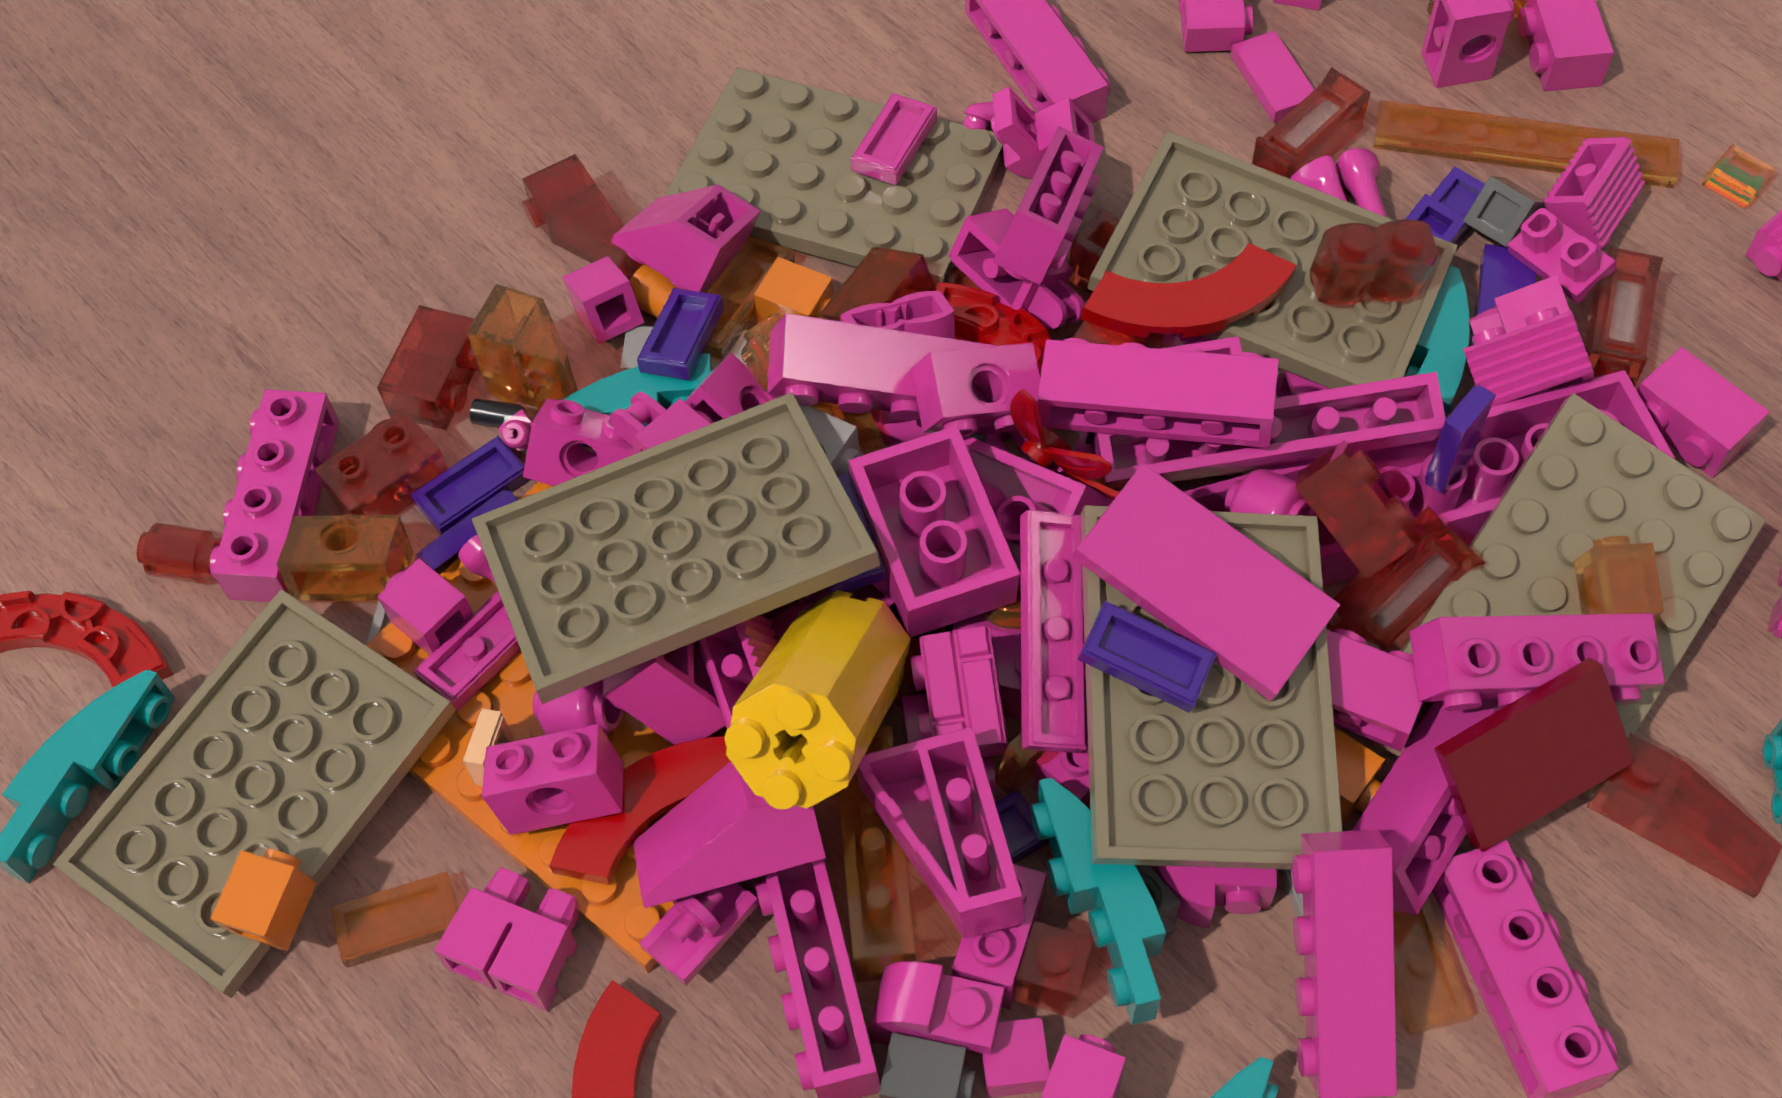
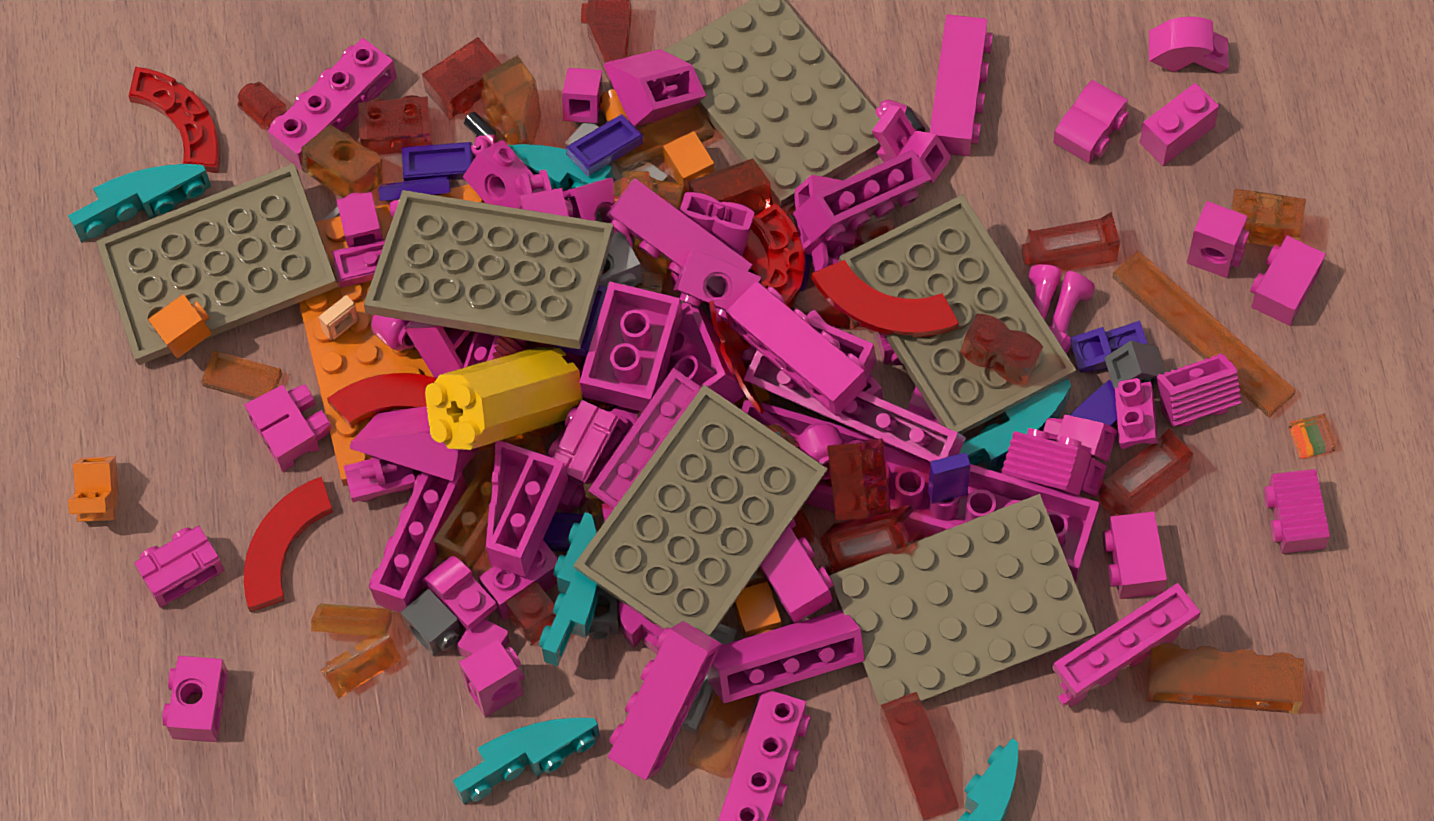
camera: 35 degrees right, 5 degrees up
(553, 779) = (356, 355): dark pink brick -> none
(894, 139) = (820, 95): dark pink tile -> none
(1147, 656) = (673, 482): dark purple tile -> none
(1206, 581) = (734, 464): dark pink tile -> none
(1271, 74) = (1090, 190): dark pink tile -> none
(1512, 655) = (886, 617): dark pink brick -> none
(1535, 754) = (842, 664): dark red tile -> none
(1618, 578) = (969, 609): clear orange brick -> none

